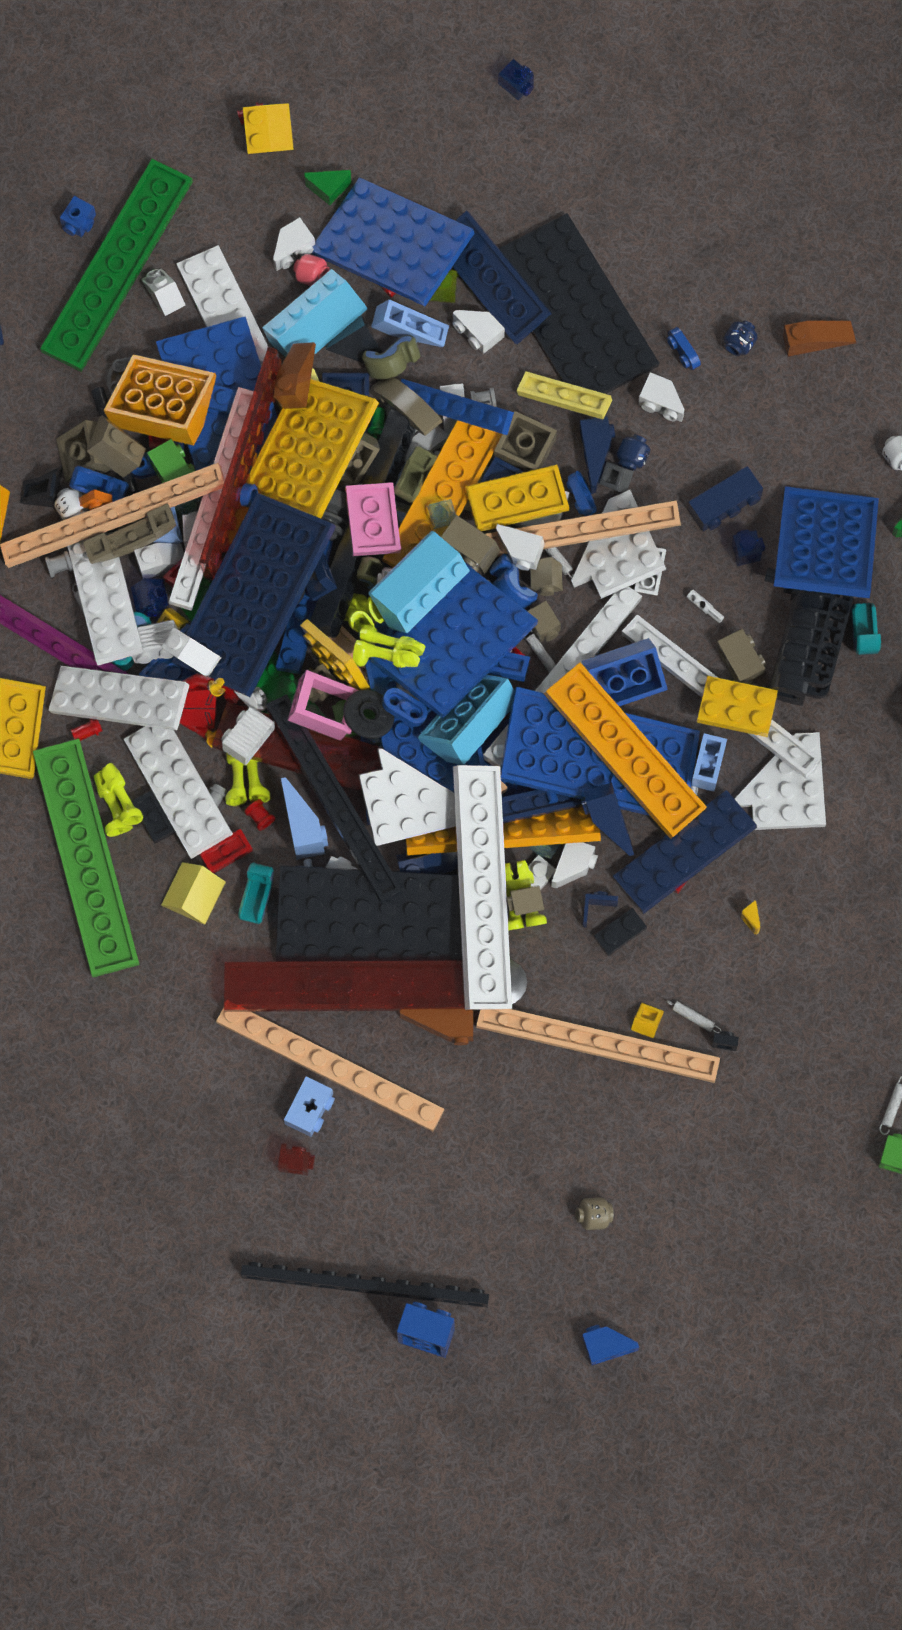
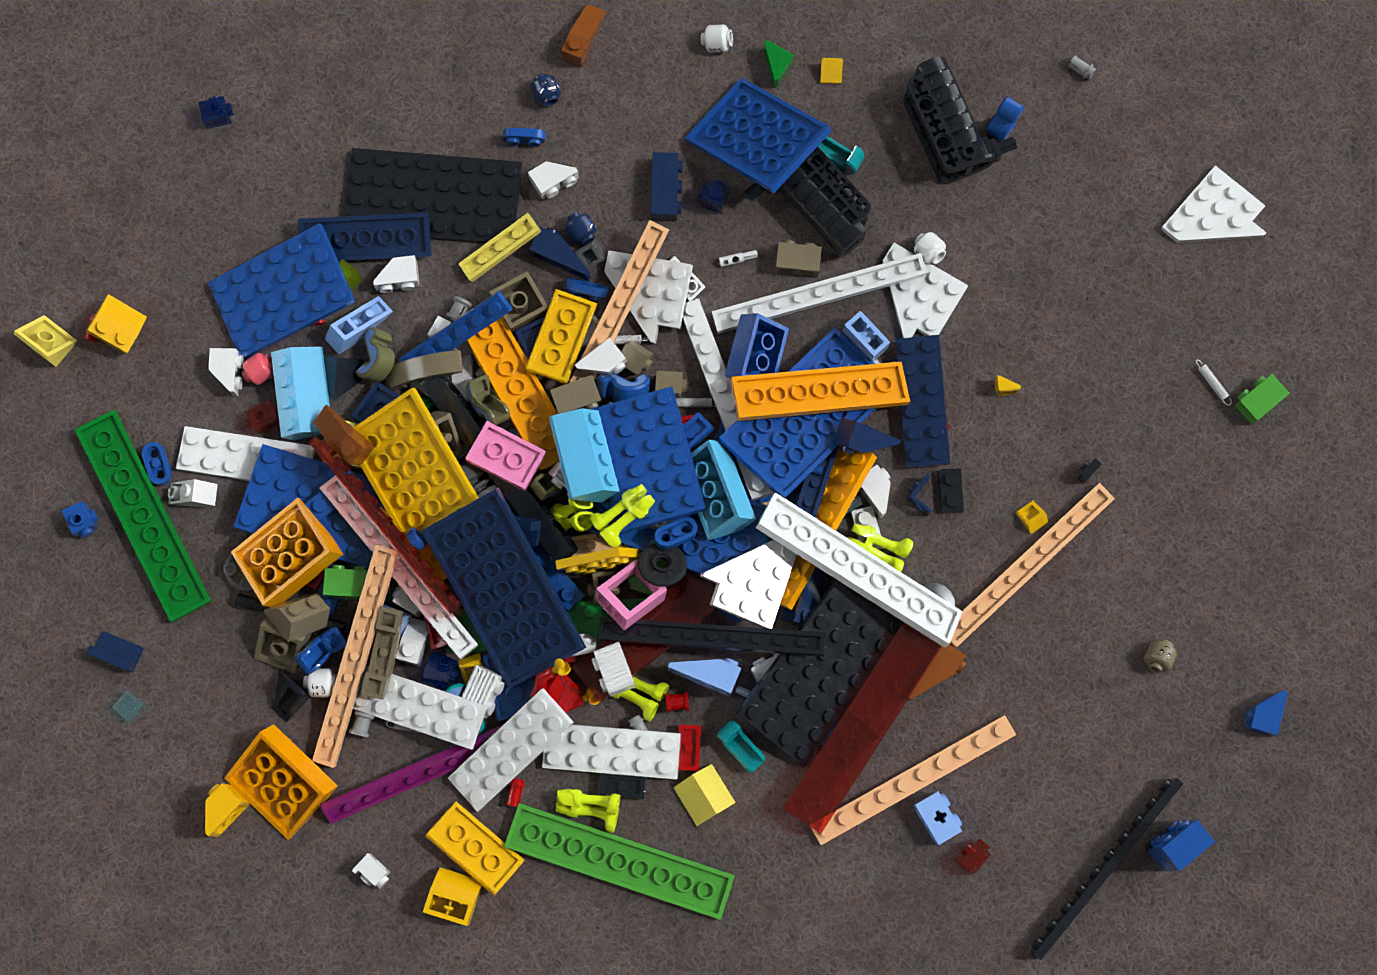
camera: 60 degrees left, 5 degrees up
(95, 499) = (332, 661): orange plate -> none
(167, 245) = (157, 464): none -> blue plate
(190, 652) = (516, 669): white slope -> none
(214, 82) = (46, 339): none -> light yellow slope
(272, 308) = (269, 420): none -> clear red brick
(328, 184) = (196, 310): green slope -> none
(441, 513) = (536, 400): clear light blue plate -> none
(525, 900) = (888, 544): dark tan brick -> none
(692, 1015) = (1052, 480): white piece -> none
(737, 706) = (838, 286): yellow plate -> none
(836, 767) = (930, 247): none -> white head

